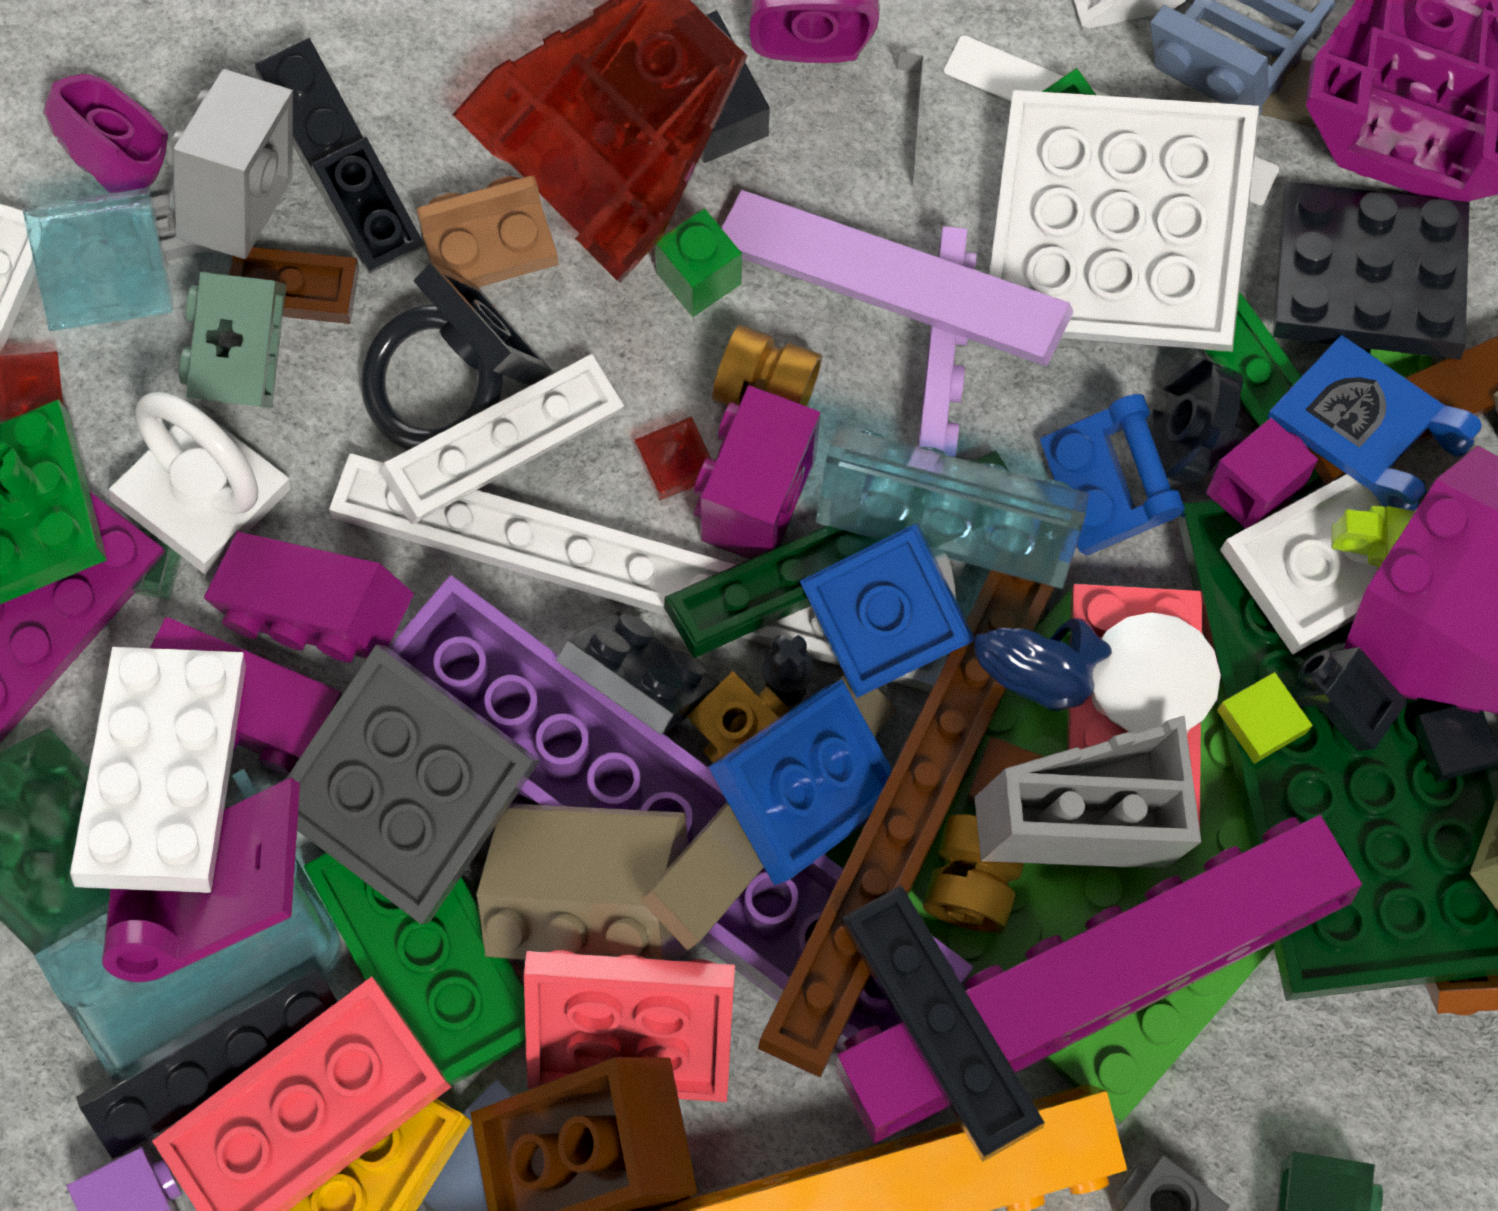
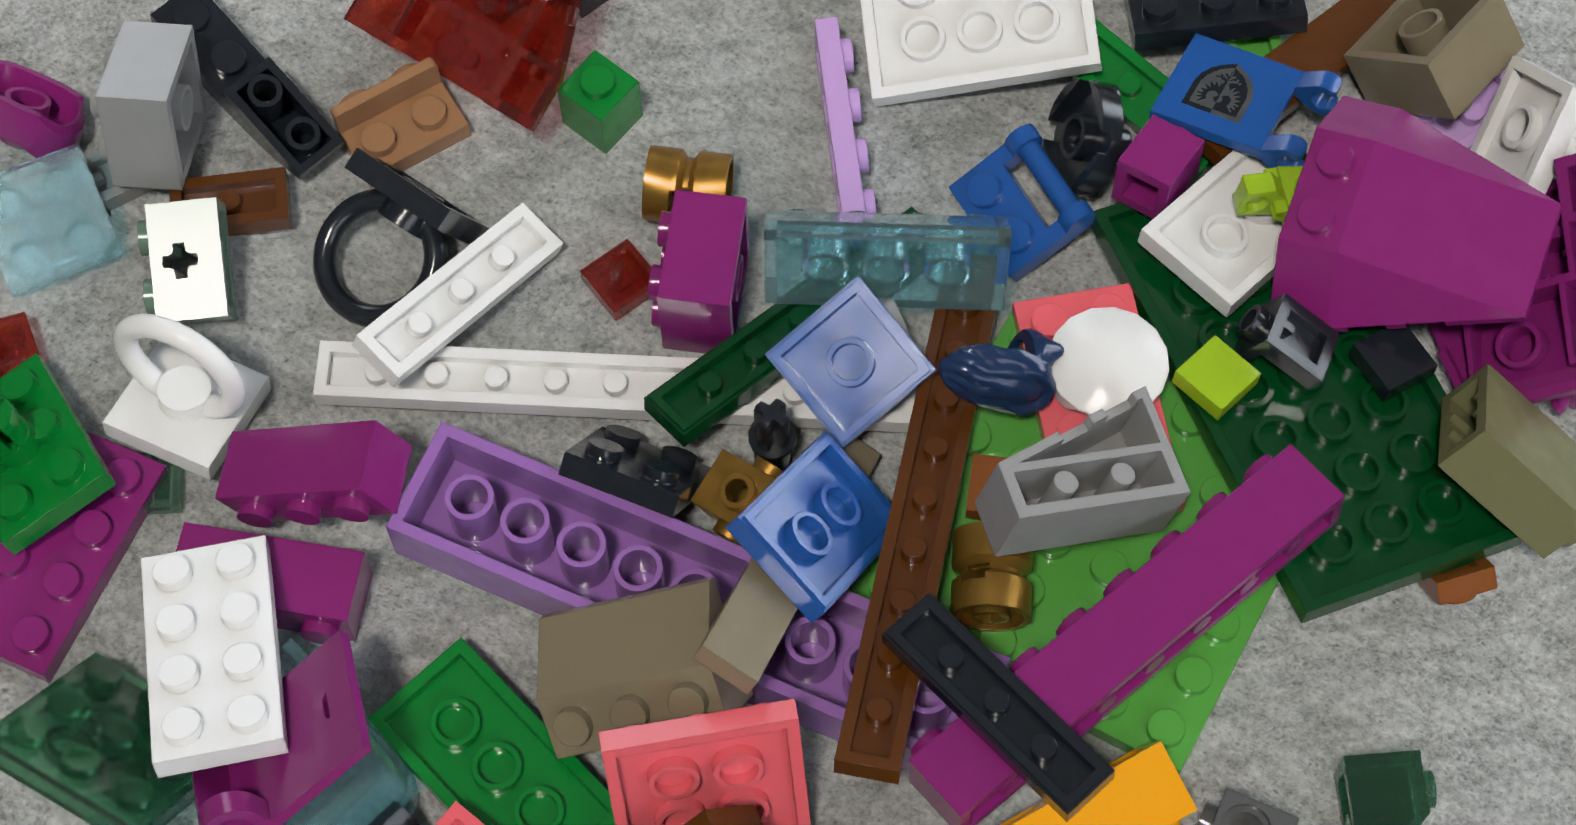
camera: 10 degrees left, 5 degrees down
(406, 783) = (447, 617): dark grey plate -> none
(898, 278) = (786, 72): lavender tile -> none

